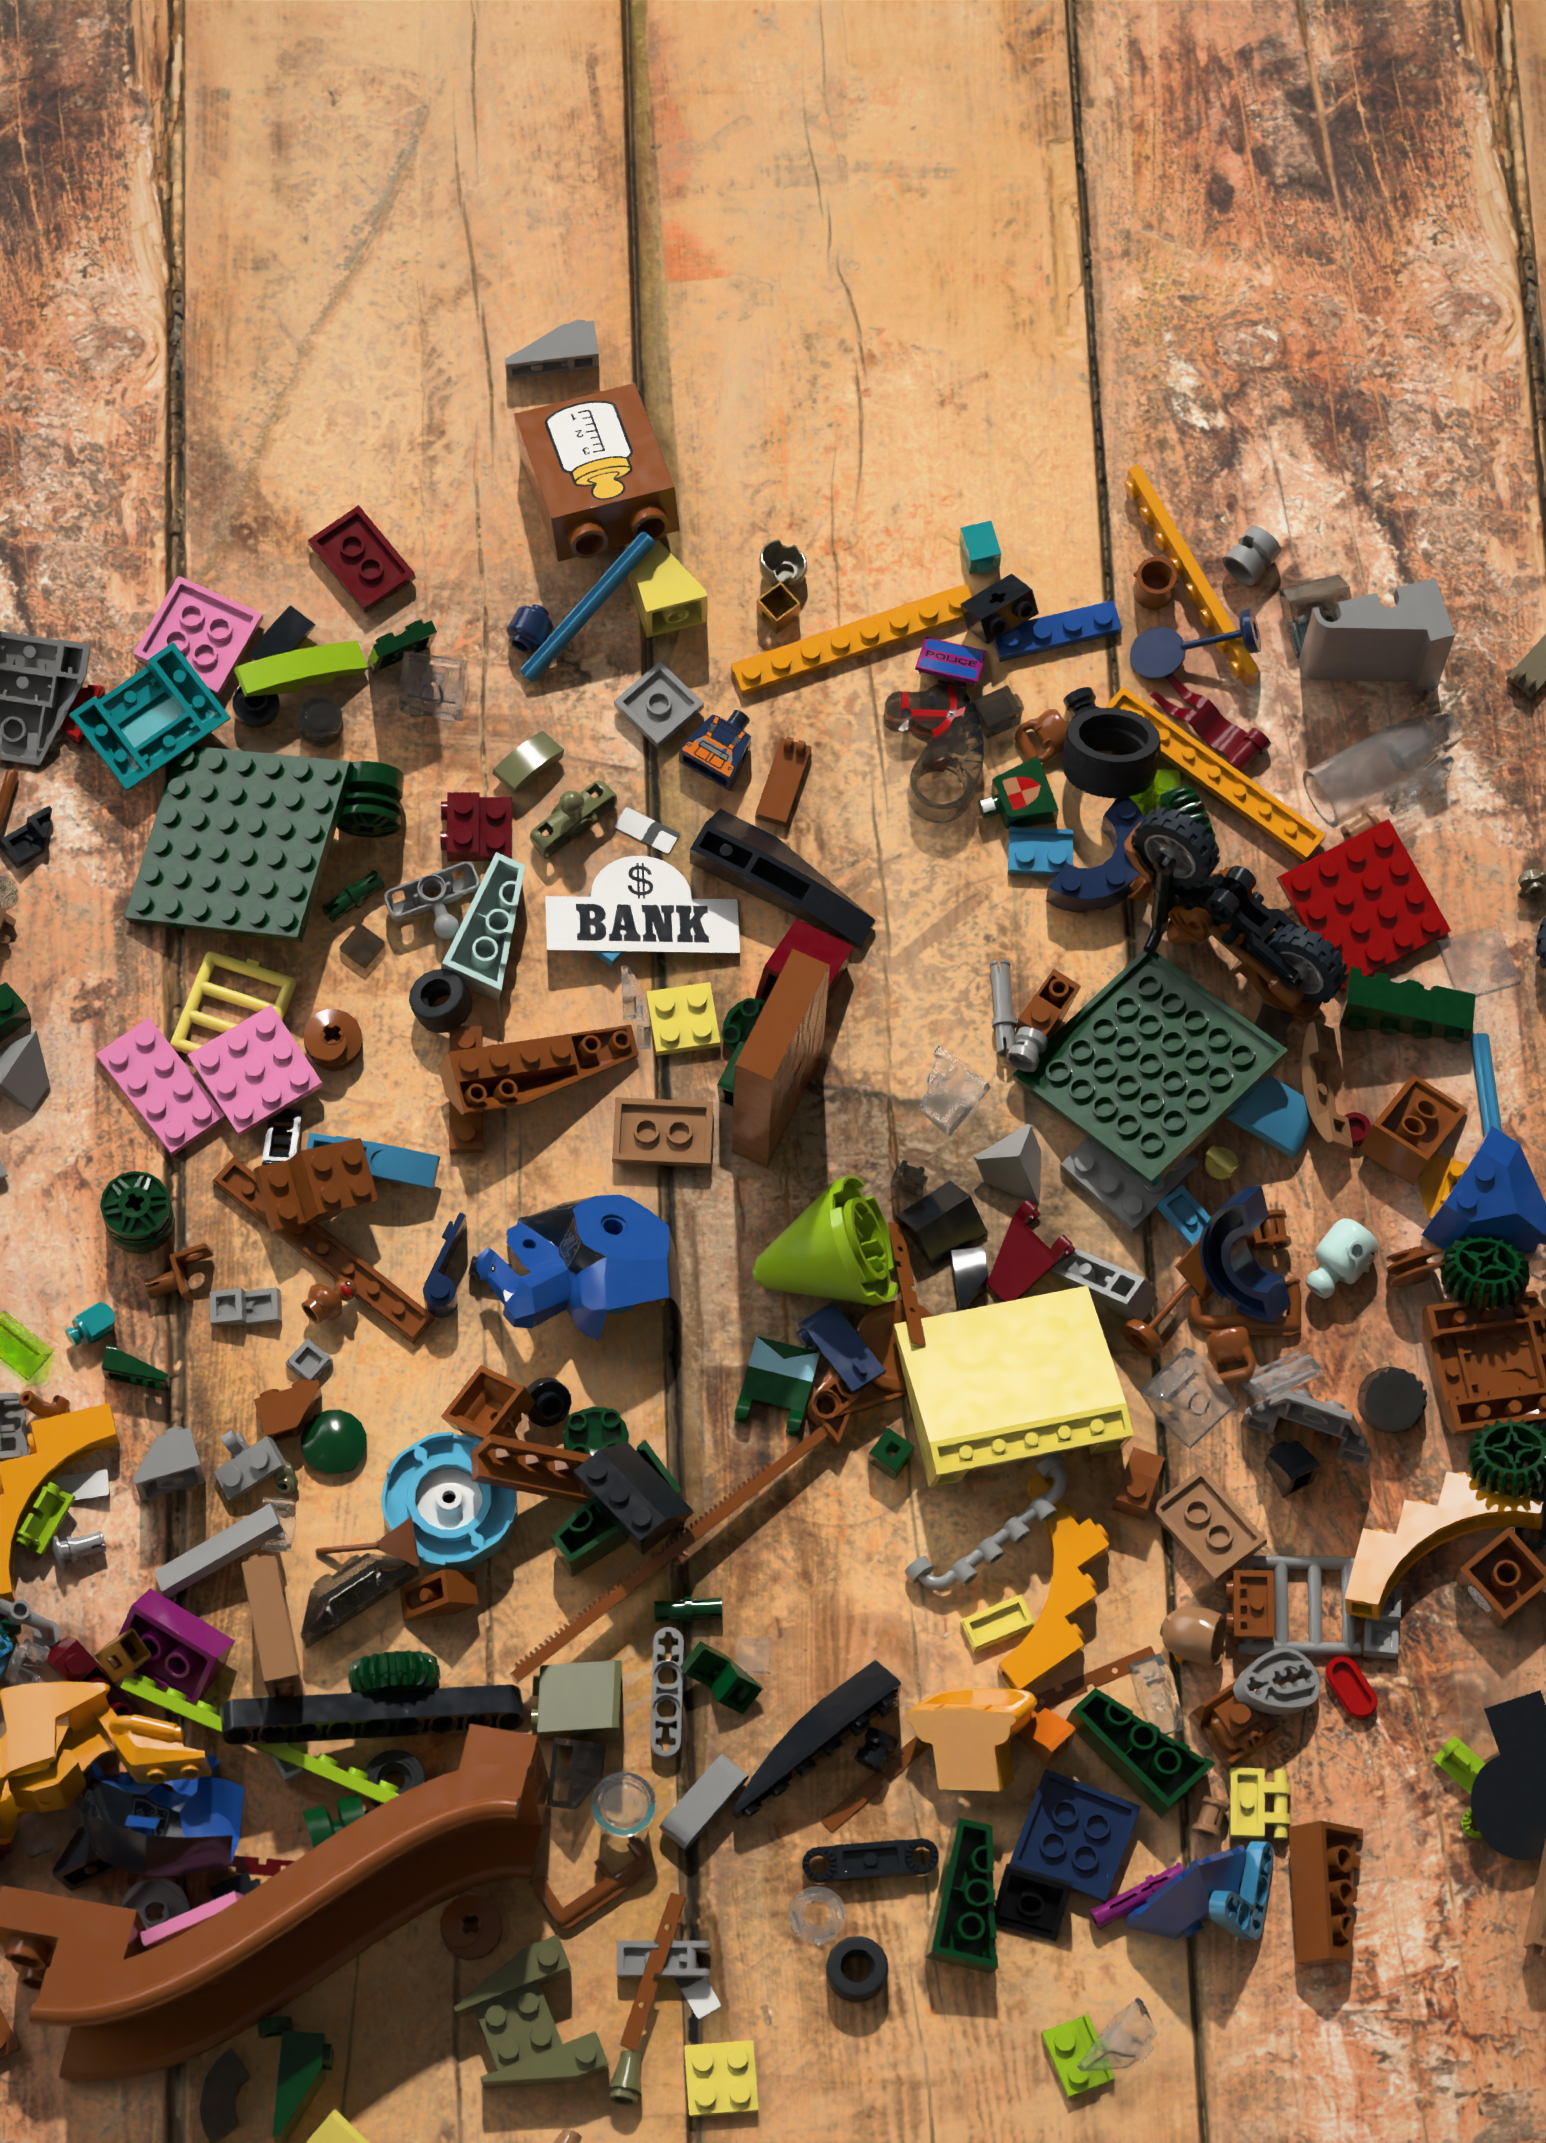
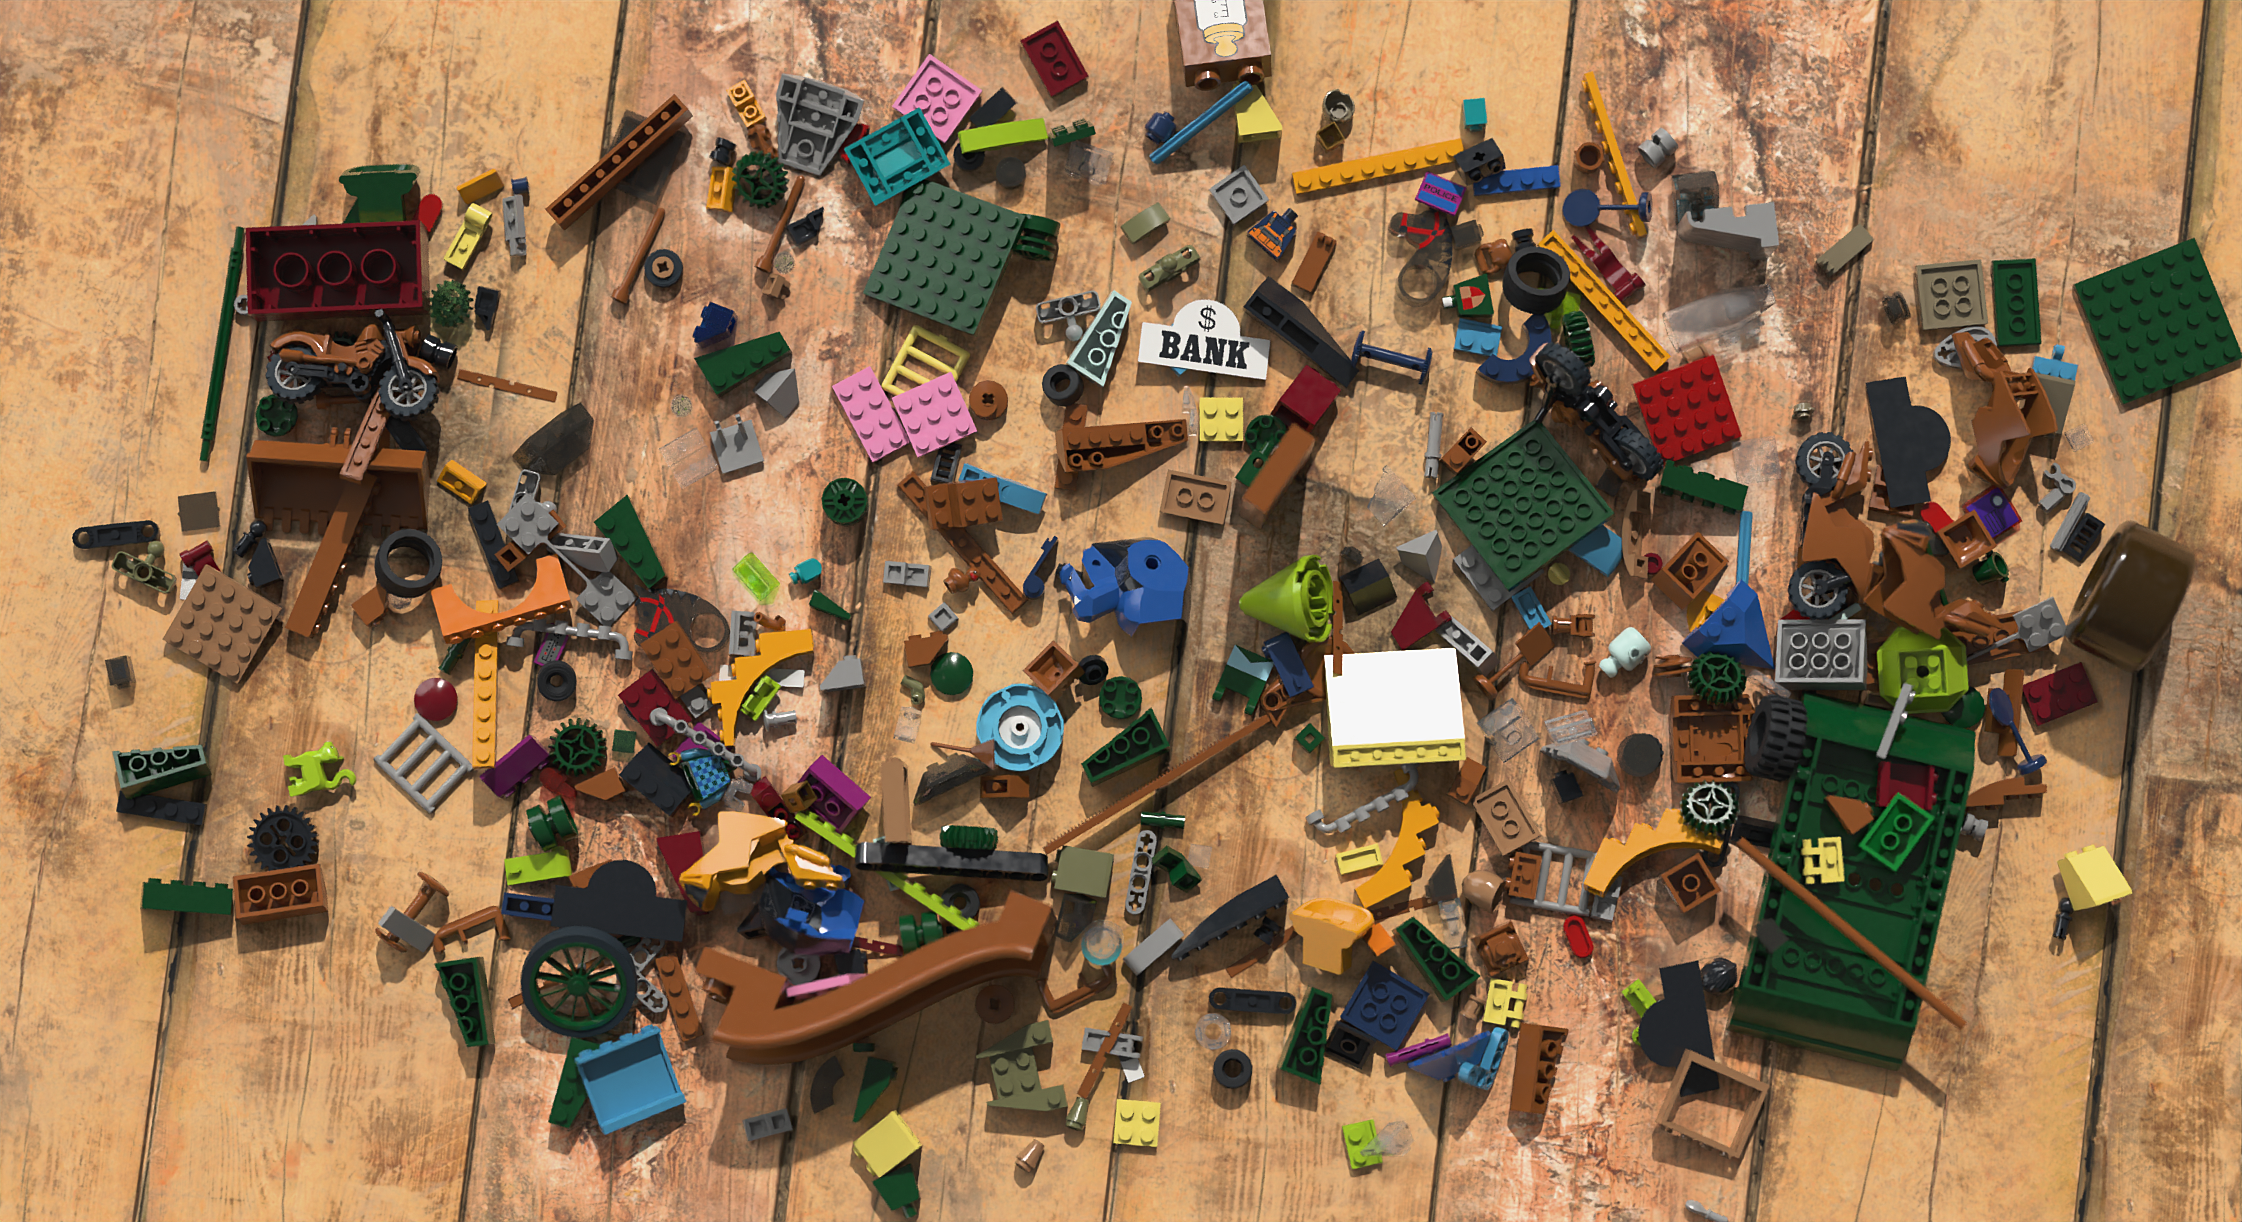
camera: 15 degrees right, 15 degrees up
(177, 1278) = (865, 548): dark orange bracket -> none
(218, 1551) = (868, 737): light grey tile -> none
(249, 1465) = (895, 682): light grey plate -> none
(353, 896) = (1015, 300): dark green pin -> none
(362, 945) = (1016, 336): clear smoke tile -> none
(476, 826) = (1104, 264): dark red plate -> none
(529, 1473) = (1078, 718): dark orange fence -> none
(631, 1495) = (1137, 745): black slope -> none
(647, 830) = (1217, 282): white sticker -> none
(920, 891) = (1391, 357): none -> dark blue hose
(970, 1274) = (1380, 625): black slope -> none
(1026, 1051) = (1443, 479): light grey wheel -> none
(1129, 1635) = (1442, 882): none -> clear smoke slope
(1229, 1346) = (1541, 701): dark orange piece -> none
(1230, 1264) = (1551, 648): dark blue brick -> none
(1275, 1698) = (1527, 919): light grey piece -> none

